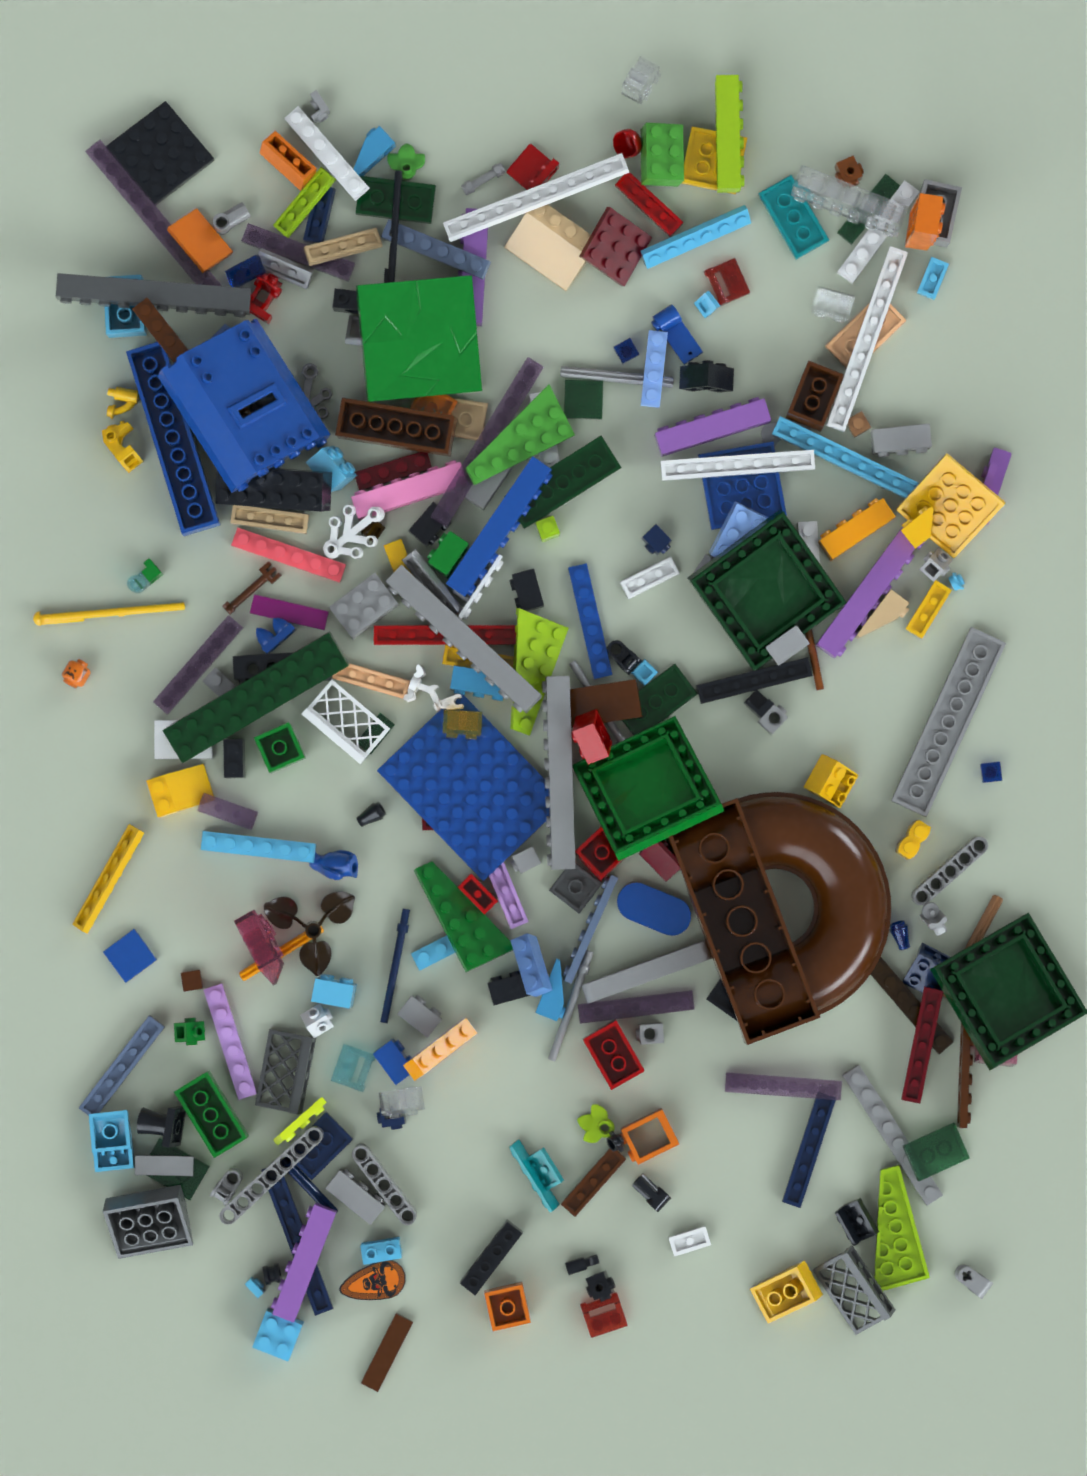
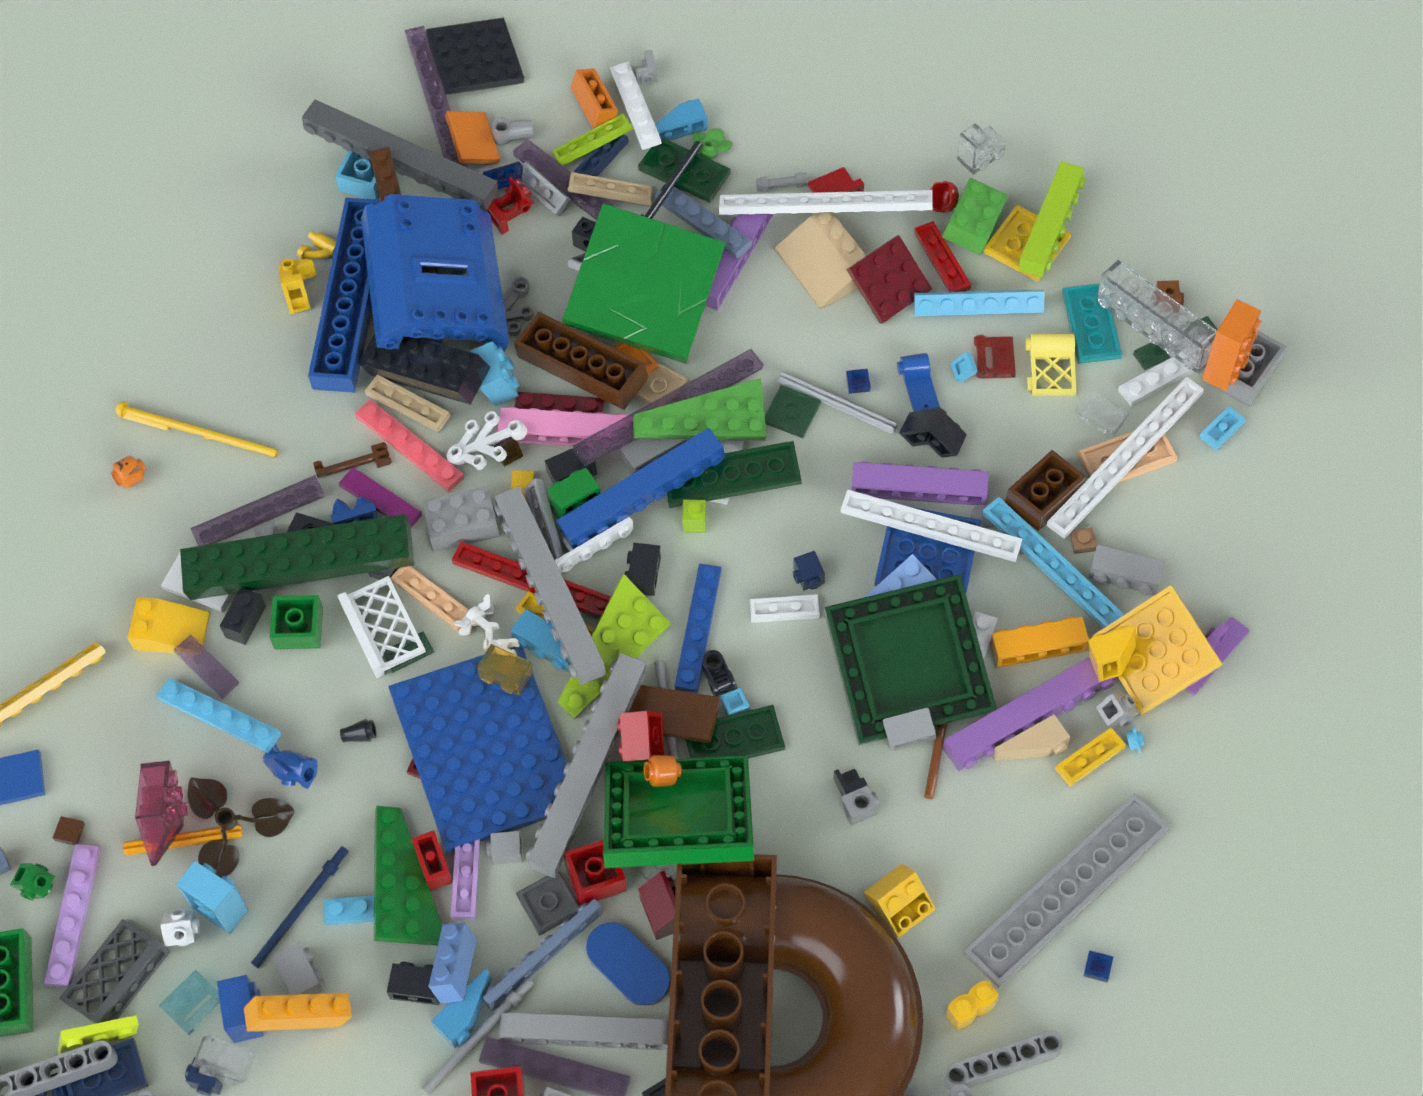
camera: 30 degrees right, 25 degrees down
(145, 578) = (250, 410): leg -> none
(621, 761) = (662, 770): none -> orange head
(654, 368) = (880, 405): light blue plate -> none
(754, 680) = (856, 756): black plate -> none
(770, 256) = (1048, 347): none -> light yellow piece

